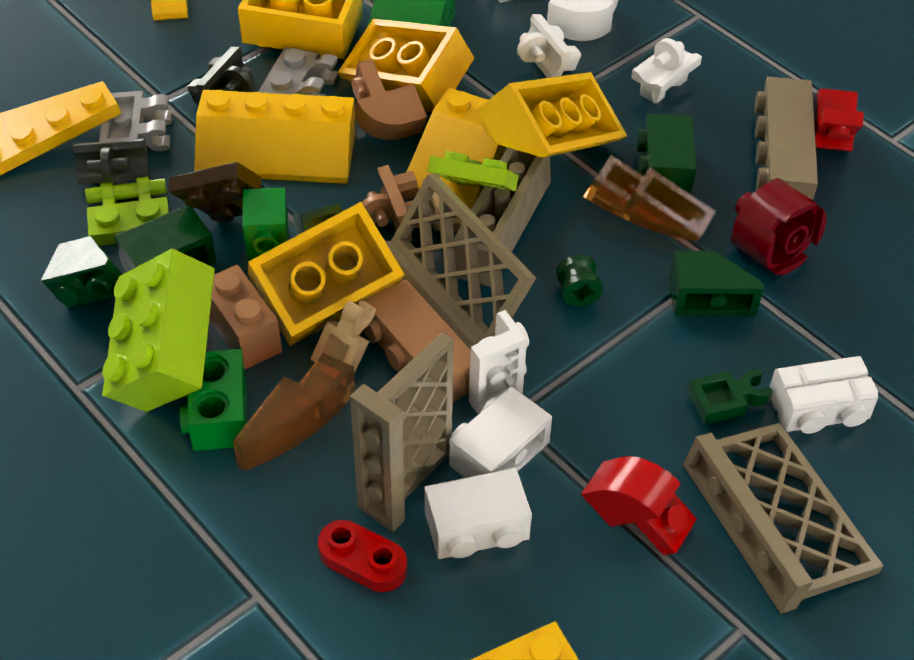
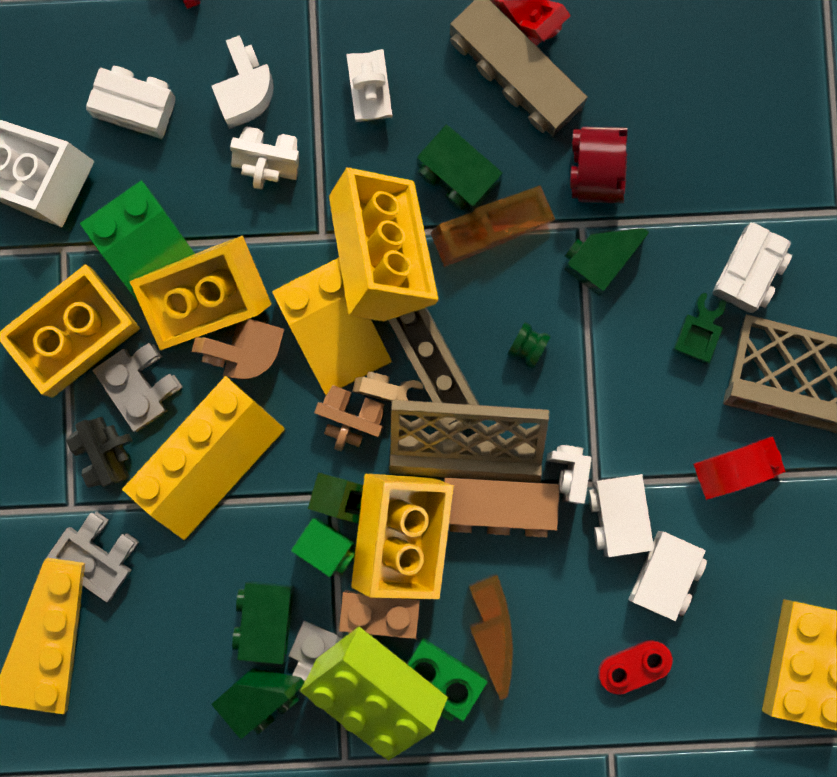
camera: 45 degrees left, 35 degrees up
(111, 161) = (140, 605): pearl dark grey hips -> none
(114, 217) = (204, 625): lime plate -> none
(215, 189) = (258, 559): dark brown plate -> none
(343, 338) = (462, 561): tan plate -> none
(404, 438) = (615, 630): dark tan fence -> none
(464, 171) = (391, 366): lime plate -> none

